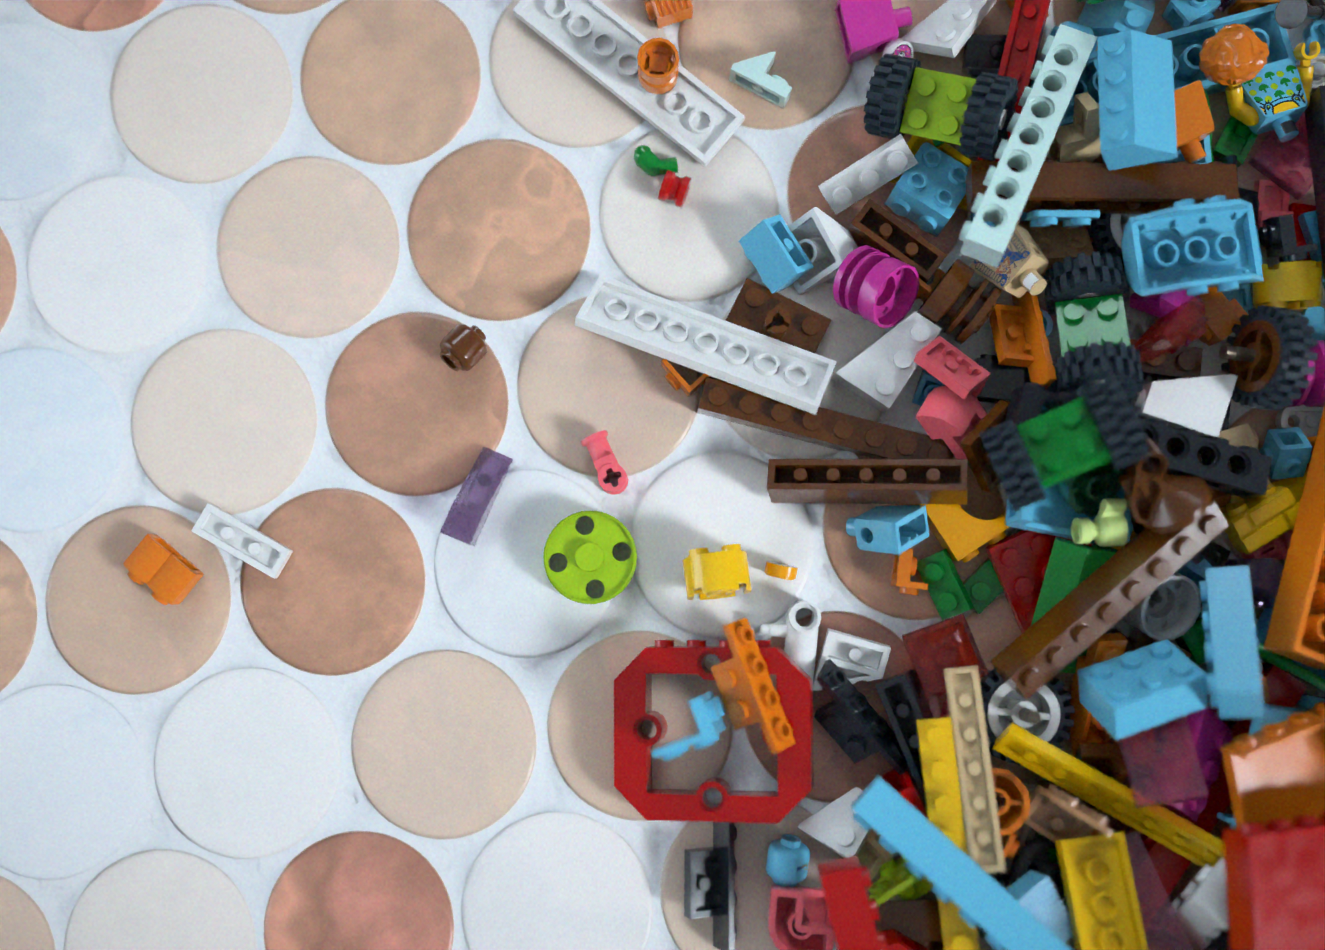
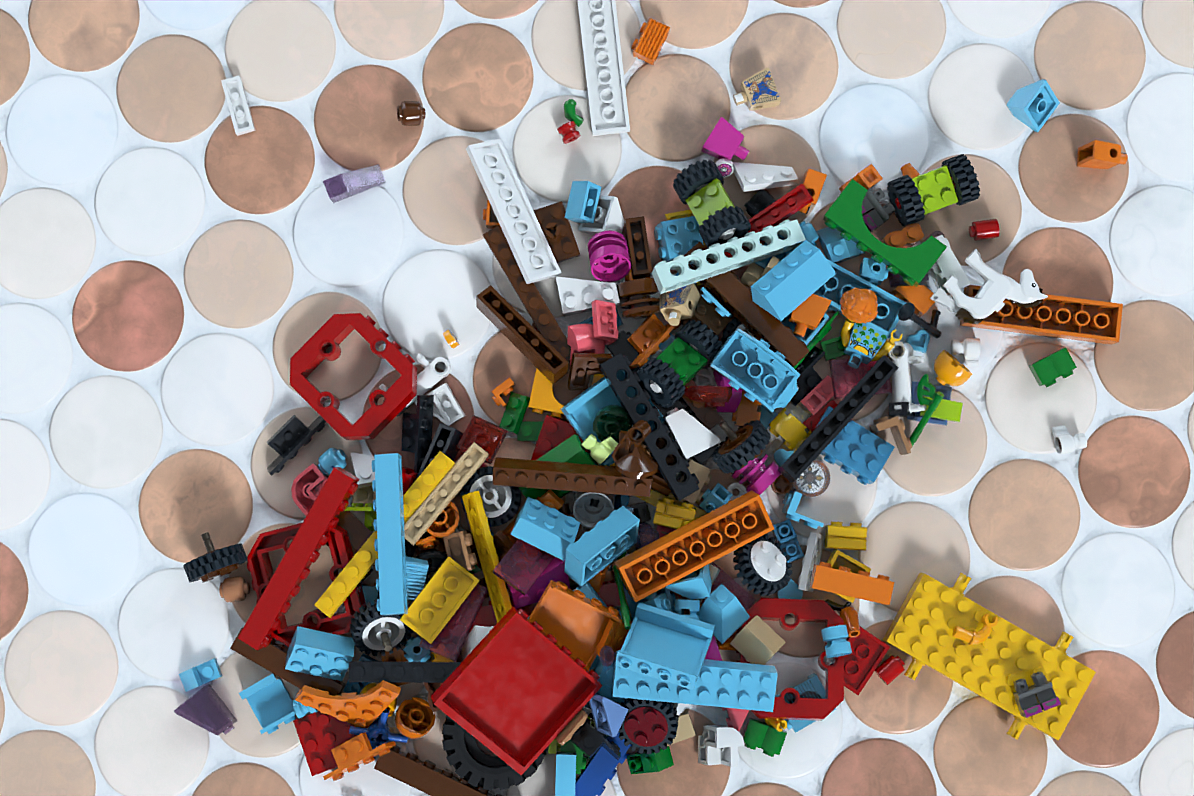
camera: 45 degrees right, 0 degrees up
(162, 569) = (193, 85): orange brick -> none
(589, 557) = (376, 254): lime piece -> none
(605, 462) = (422, 221): coral connector -> none
(658, 65) = (610, 72): orange wheel -> none
(708, 716) = (353, 364): medium azure bracket -> none
(716, 573) = (421, 312): yellow brick -> none
(748, 688) = (384, 369): orange bracket -> none
(754, 77) = (653, 116): light aqua slope -> none
(868, 174) = (656, 206): white plate -> none
(889, 528) = (506, 361): medium azure torso -> none
(1066, 442) = (609, 389): plate -> none
(1280, 239) = (803, 402): black bracket -> none

